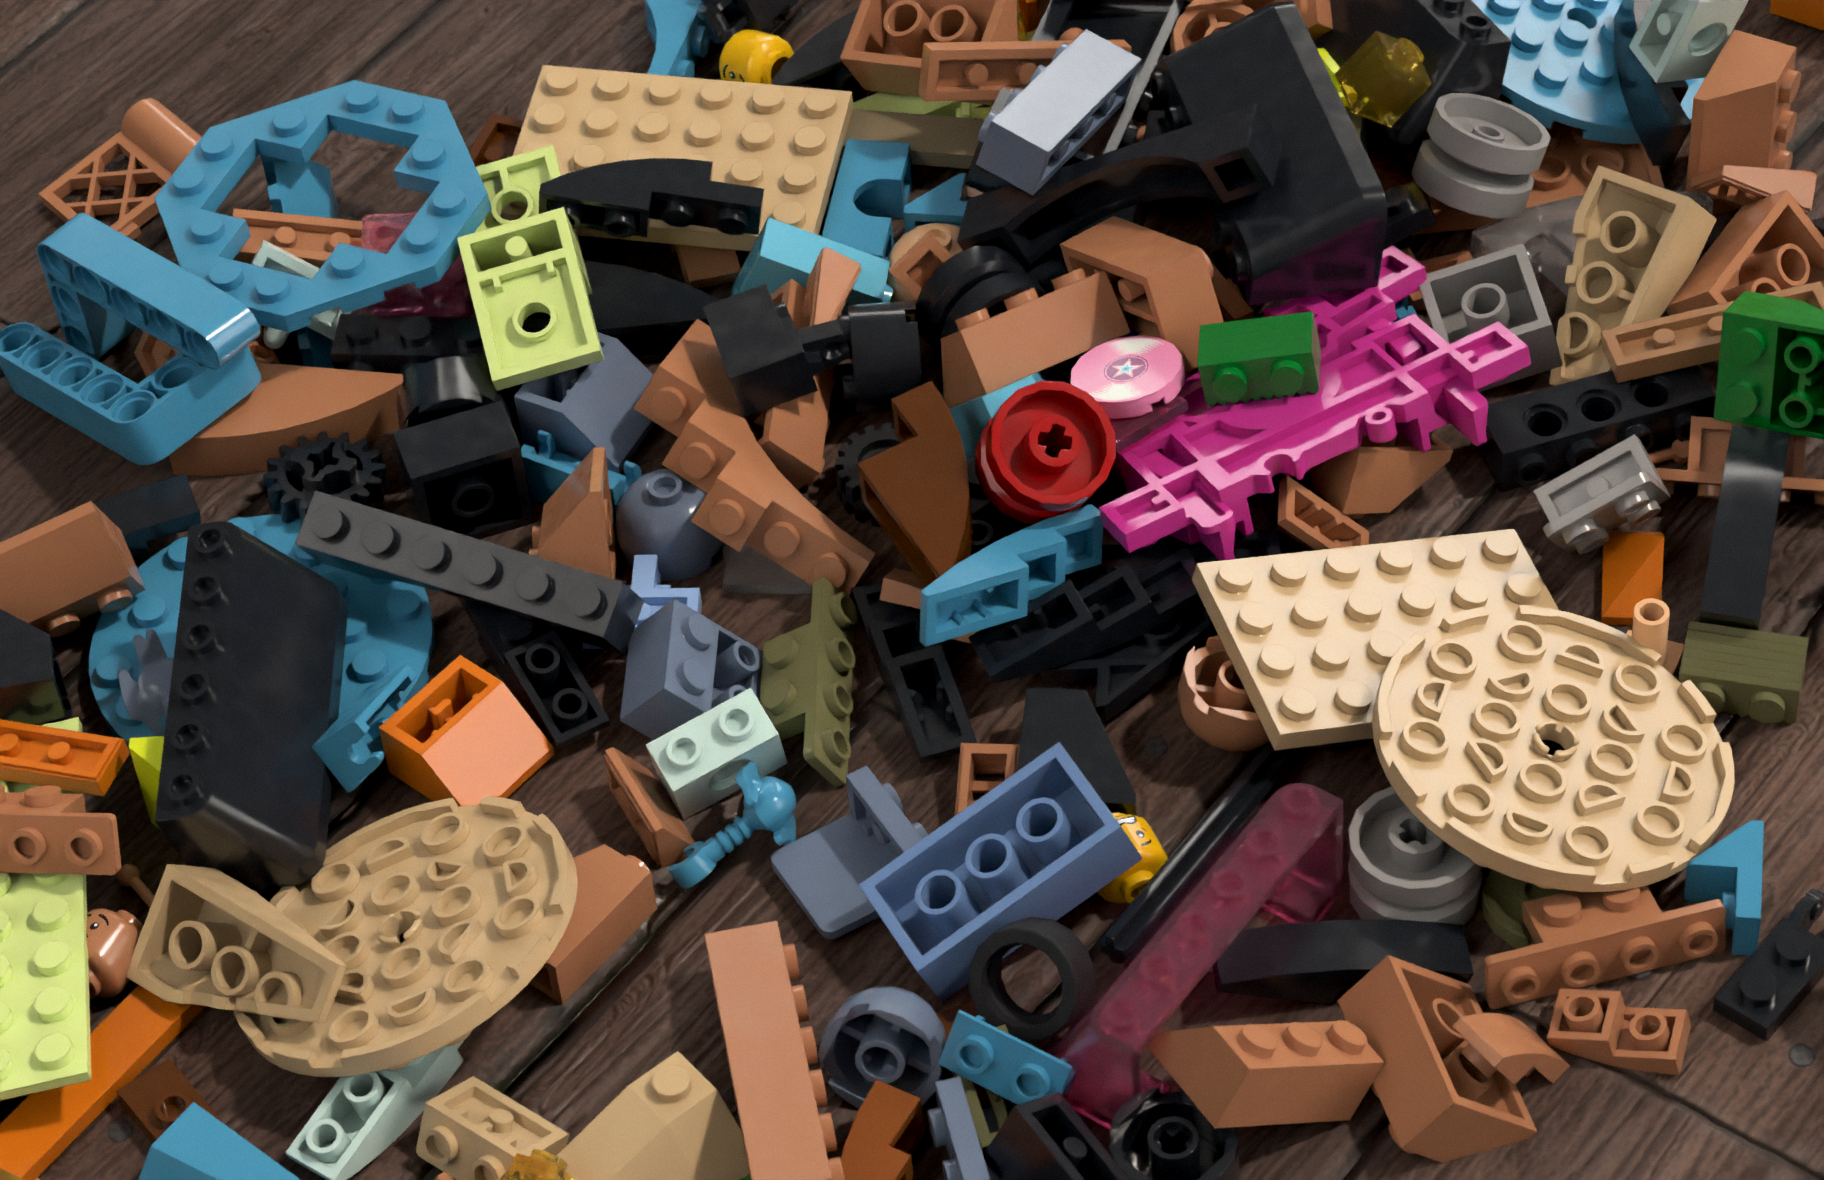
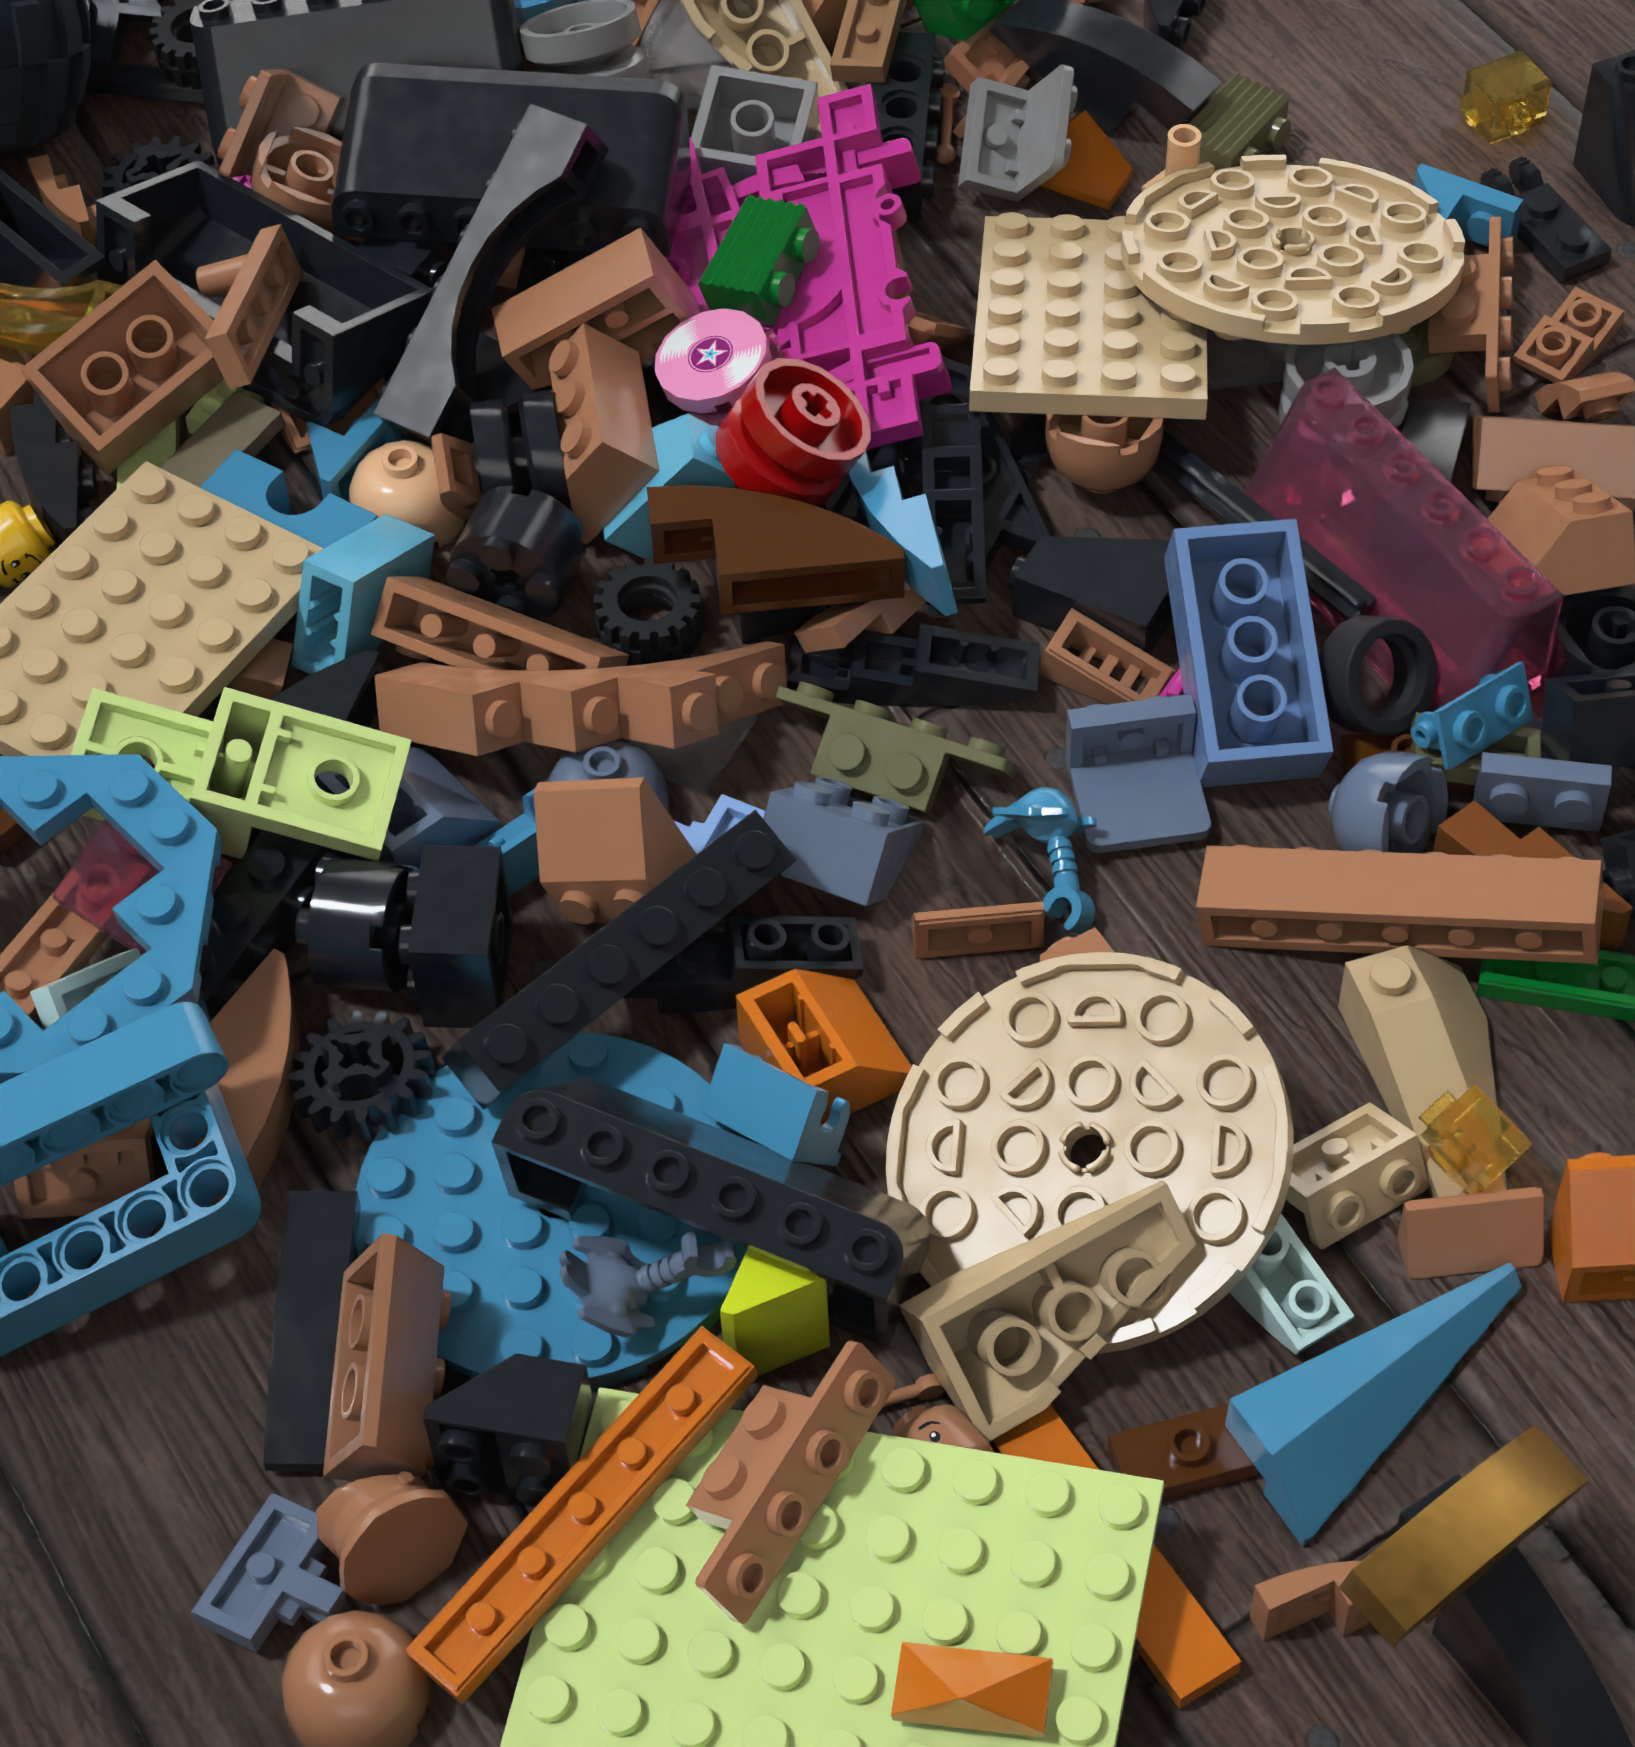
camera: 70 degrees left, 5 degrees up
(629, 193) = (227, 630): black slope -> none
(705, 753) = (961, 835): light aqua brick -> none
(766, 354) = (496, 616): black hinge -> none
(828, 287) = (415, 552): nougat slope -> none
(1056, 111) = (367, 278): brick -> none
(1383, 78) = (472, 46): clear yellow brick -> none

